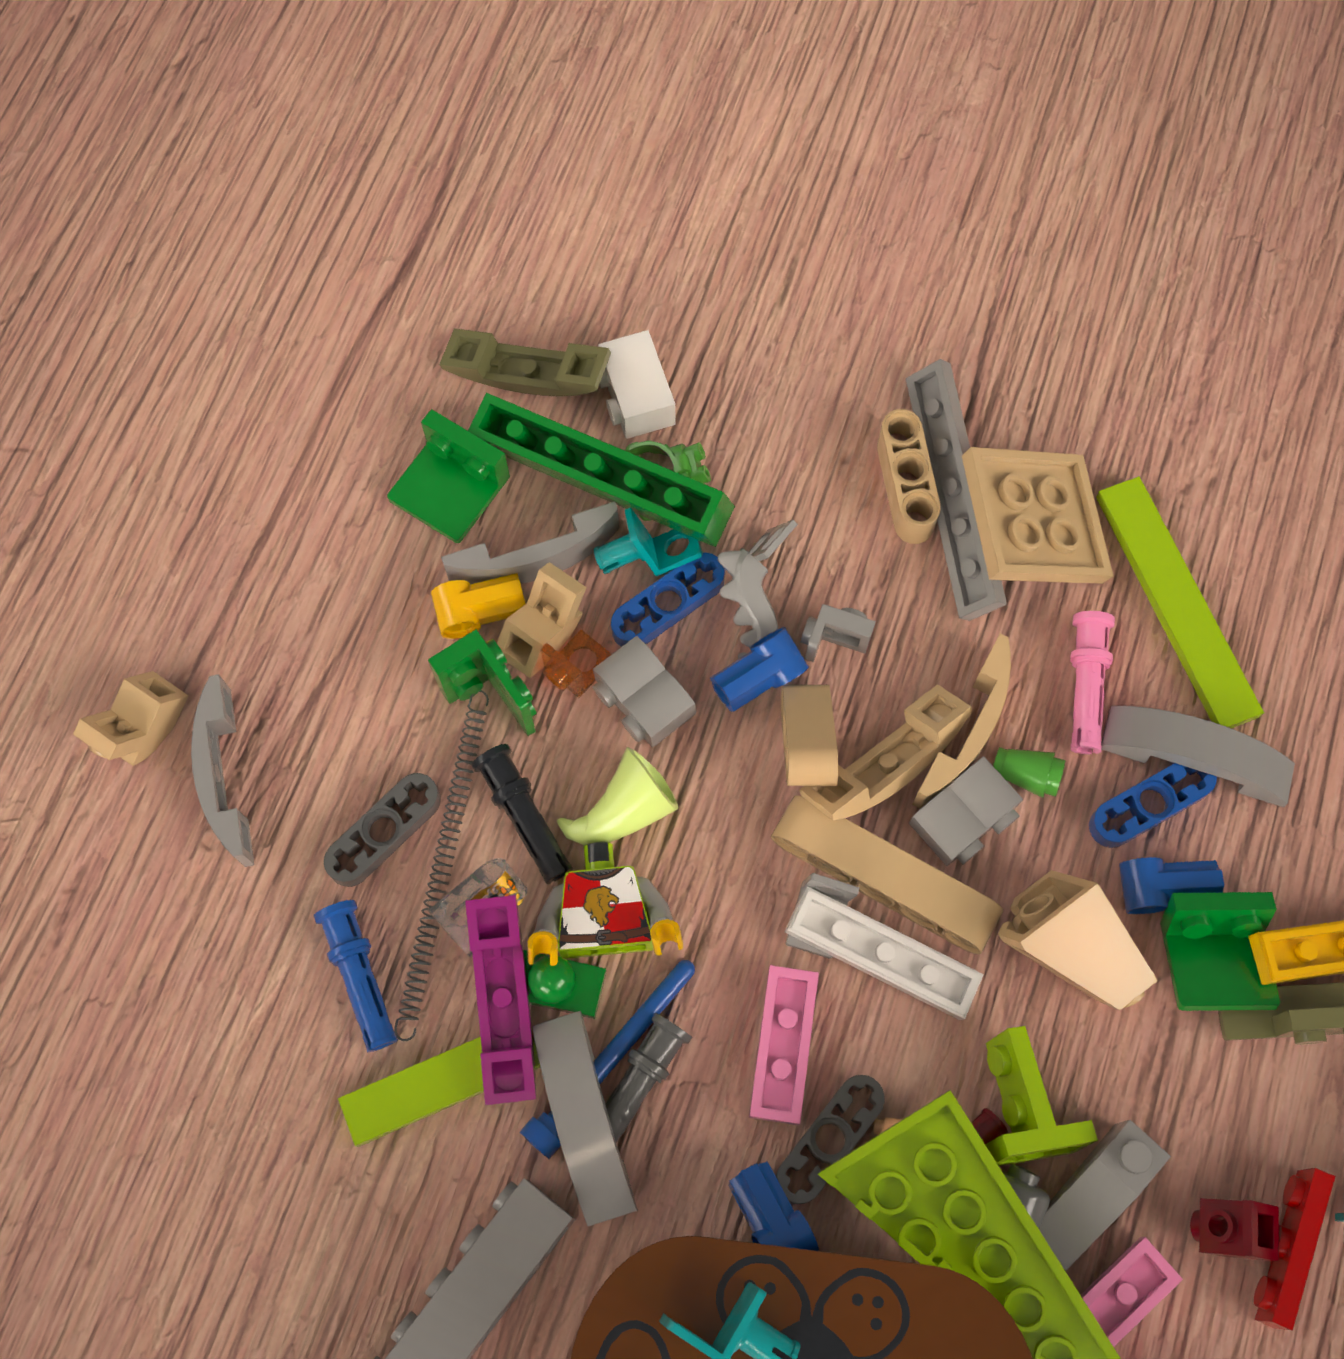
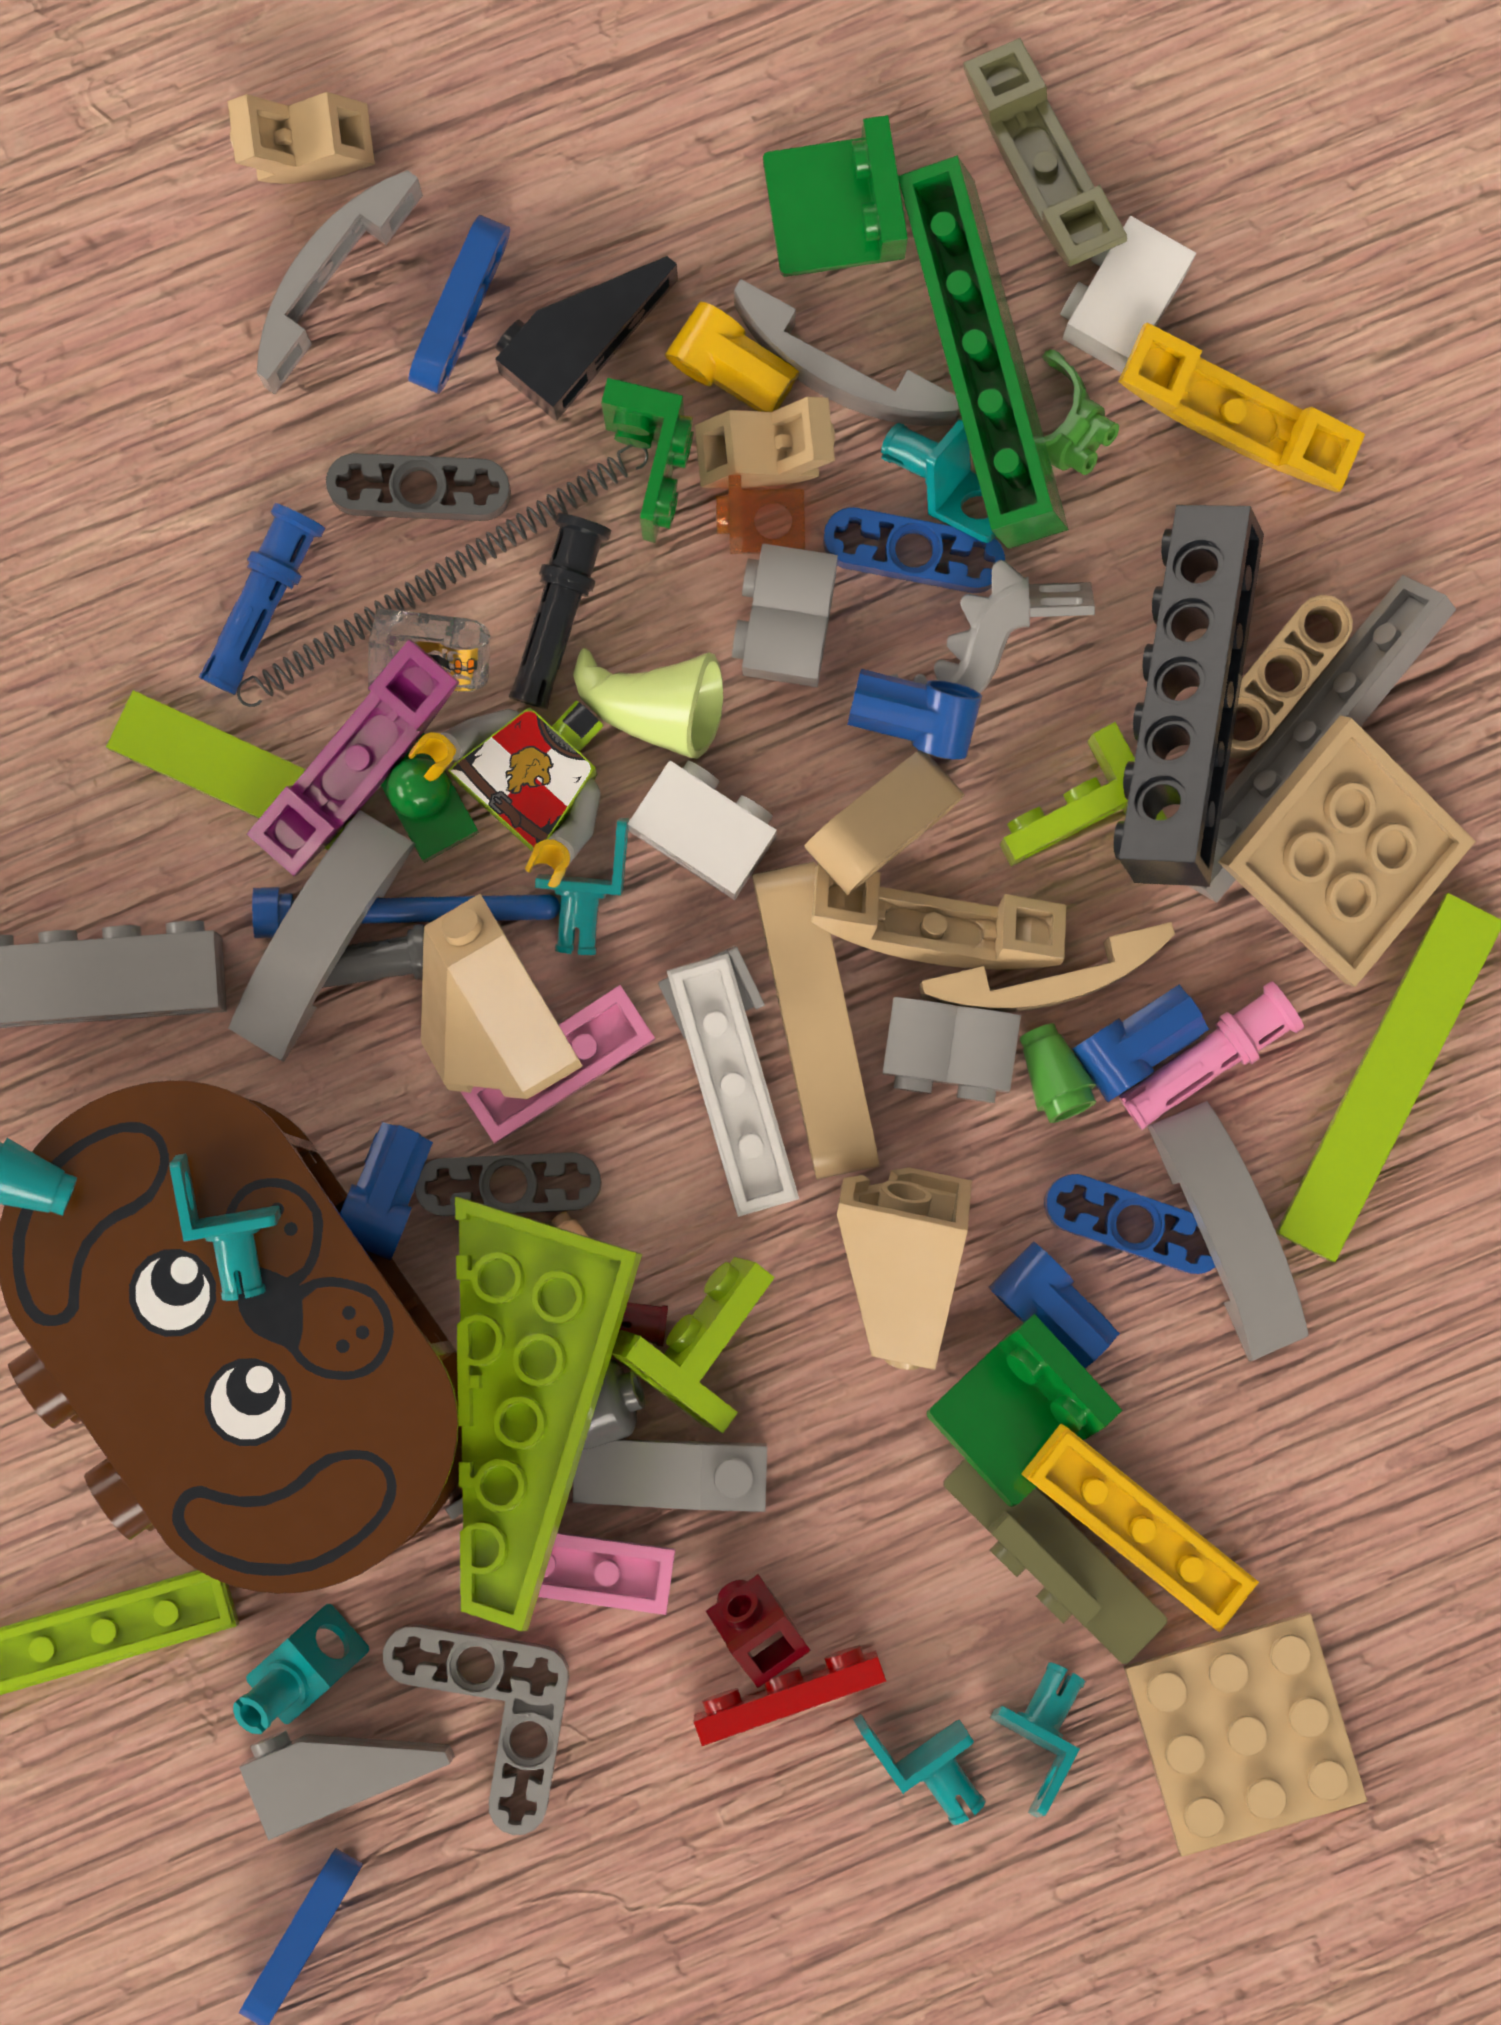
camera: 45 degrees right, 15 degrees up
(307, 718) = (459, 304): none -> blue beam
(385, 674) = (574, 338): none -> black slope
(698, 942) = (581, 898): none -> teal bracket
(720, 1052) = (484, 1011): none -> tan slope
(721, 839) = (703, 827): none -> white brick
(749, 385) = (1237, 413): none -> yellow slope
(842, 627) = (1045, 758): light grey bracket -> none
(896, 601) = (1085, 803): none -> lime bracket
(968, 585) = (1185, 845): none -> black brick
(1049, 720) = (1129, 1049): none -> blue piece

